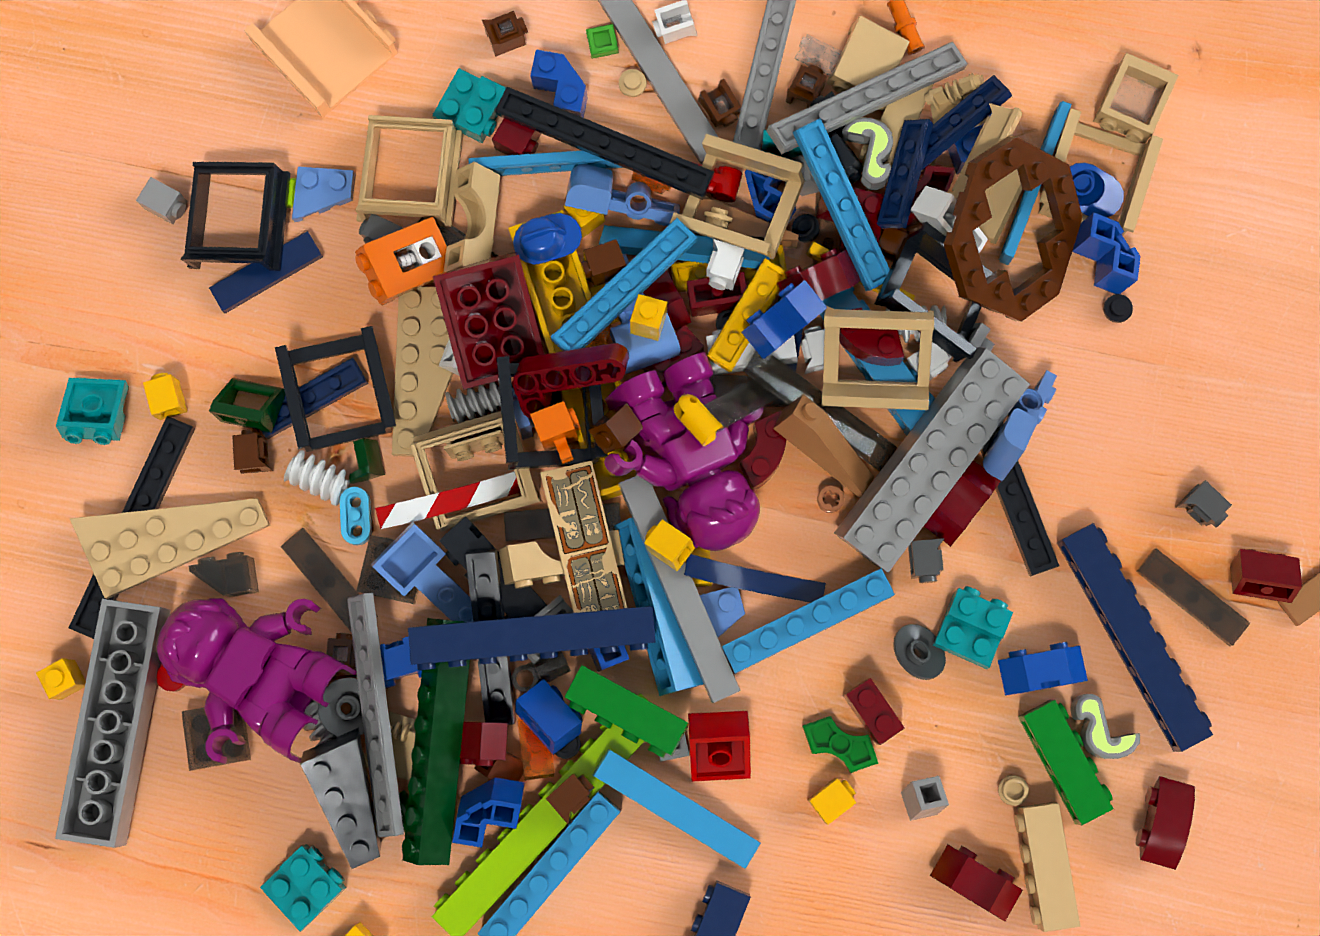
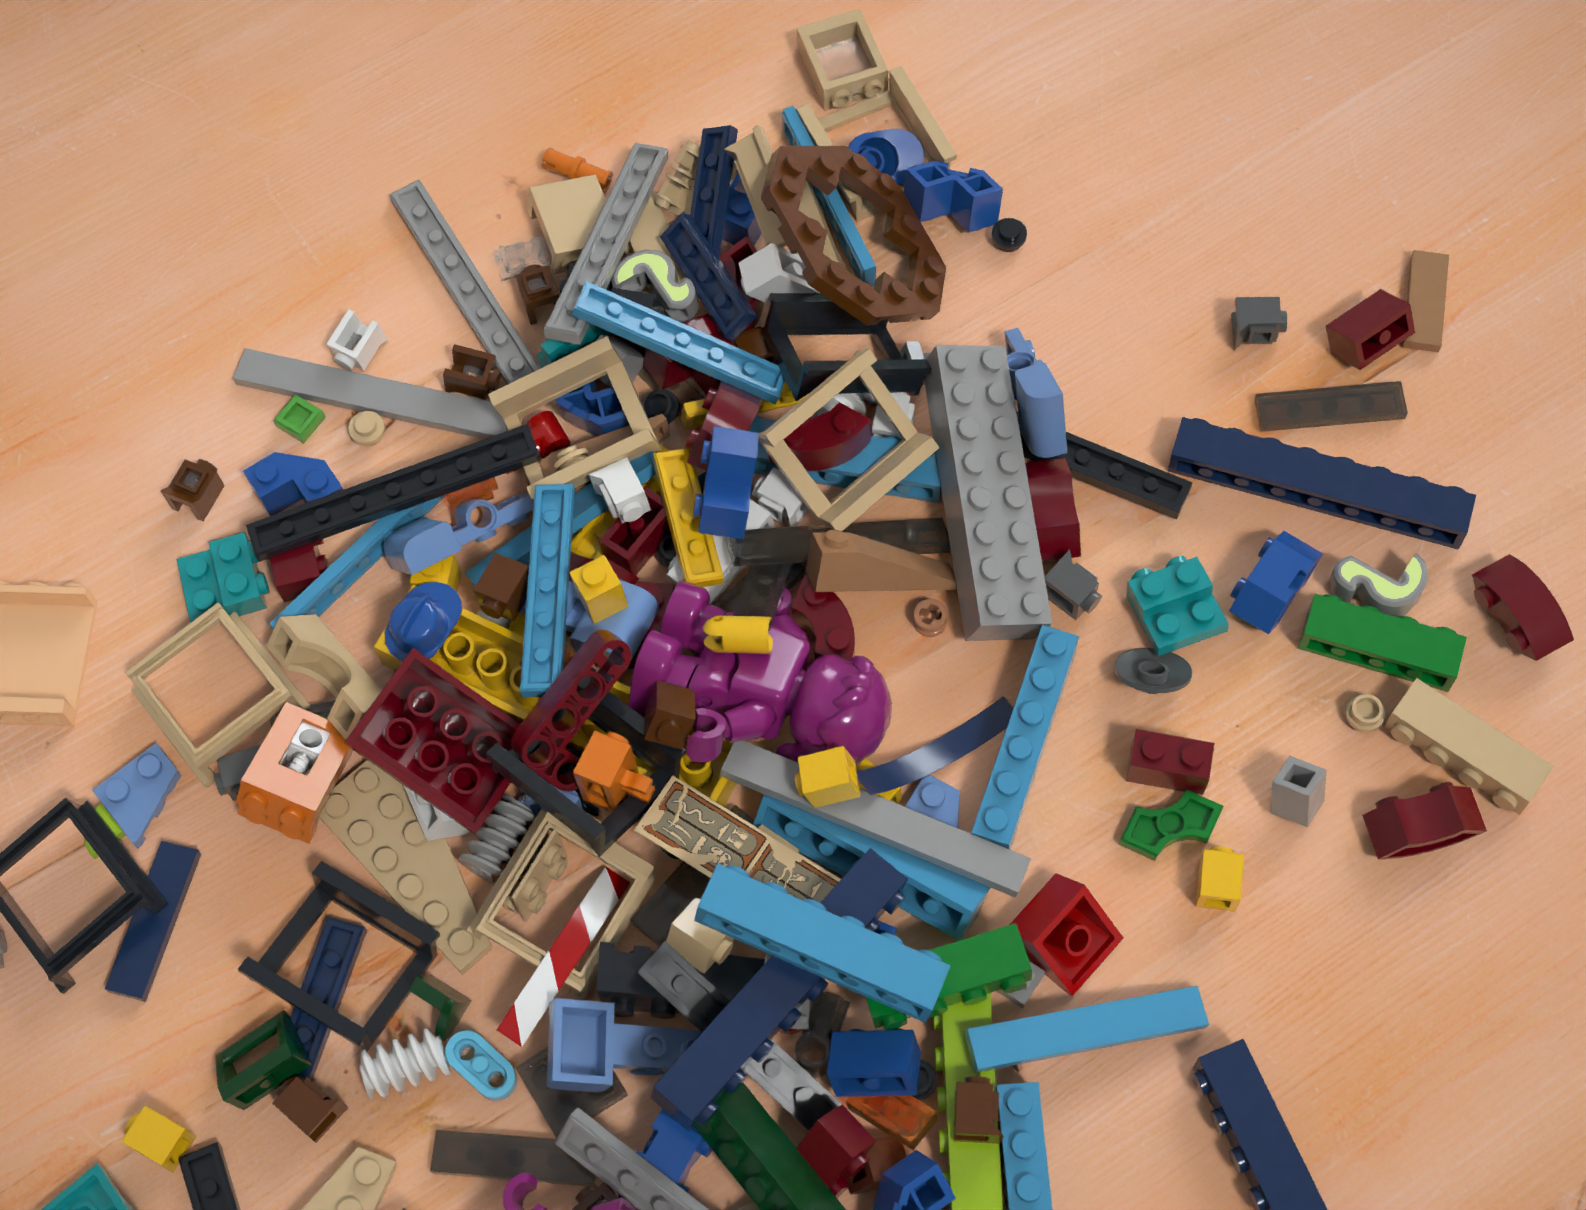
camera: 45 degrees left, 15 degrees down
(569, 636) = (822, 942): none -> dark azure brick

